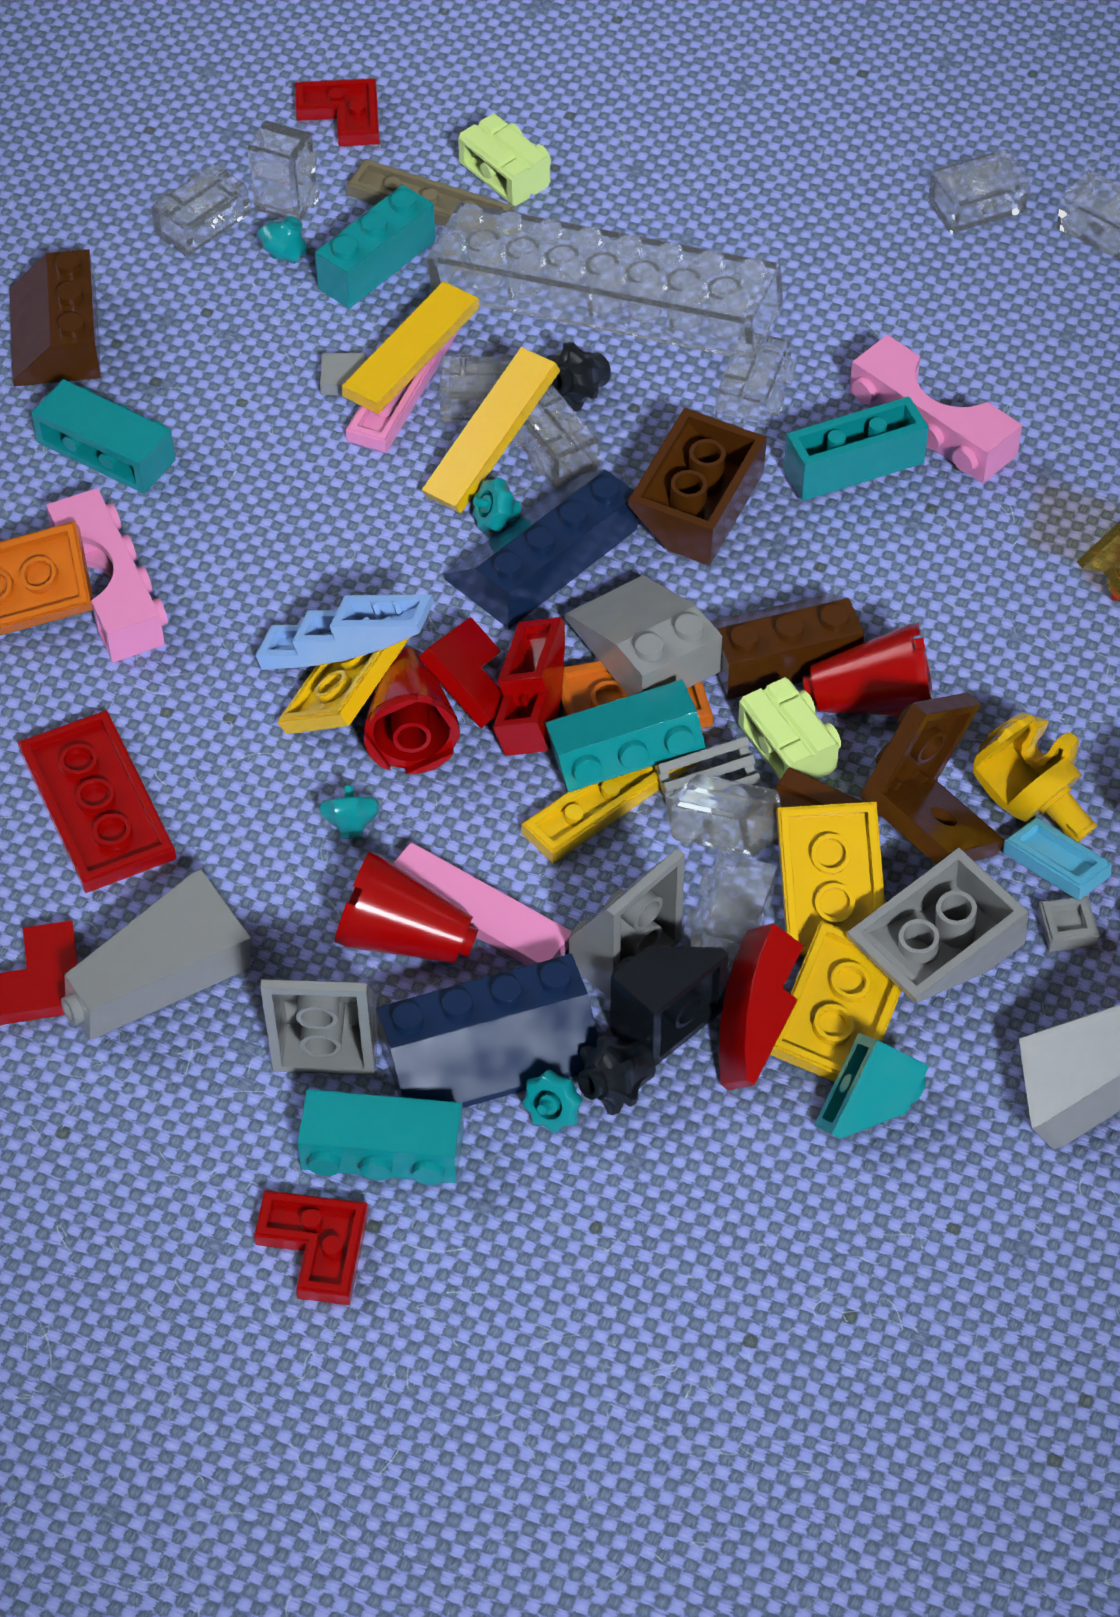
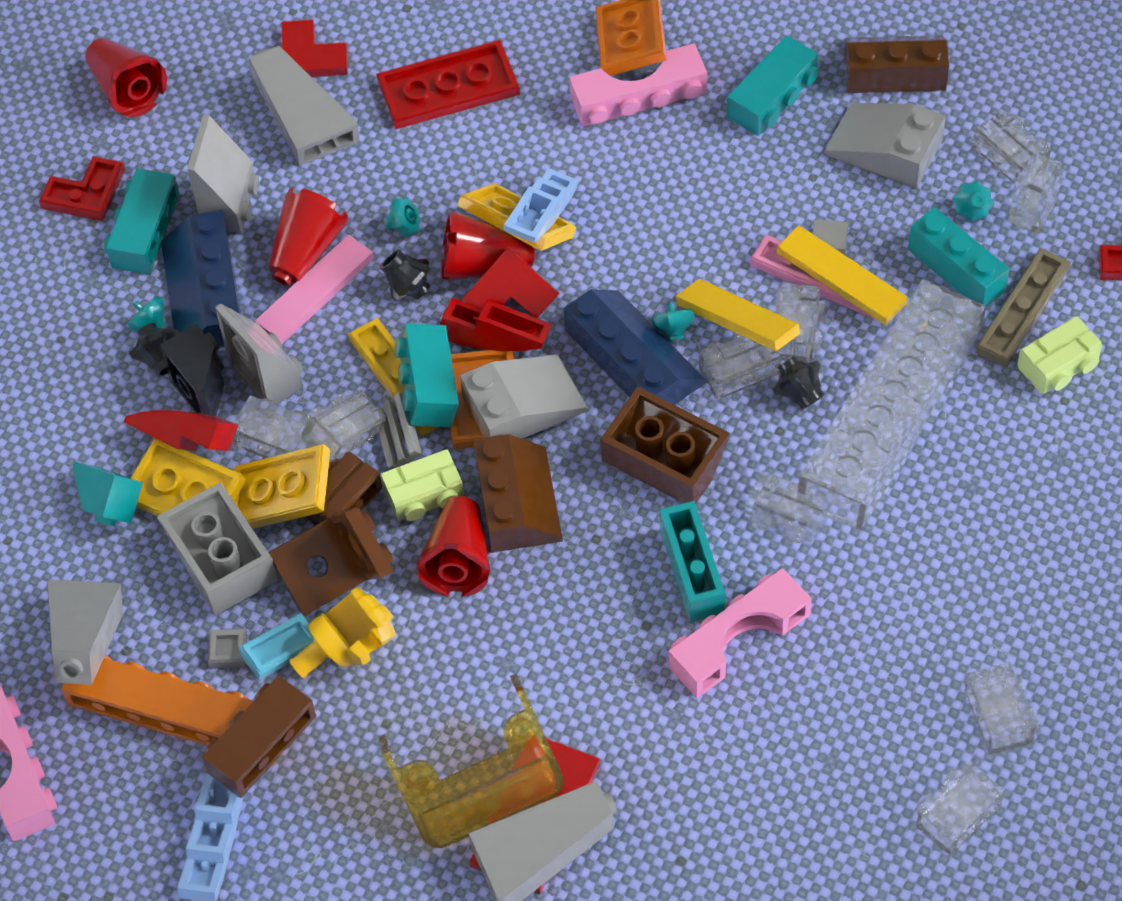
camera: 100 degrees right, 5 degrees up
(96, 1209) = (126, 76): none -> red cone
(189, 321) = (888, 139): none -> light grey slope
(459, 787) = (406, 275): none -> black rock

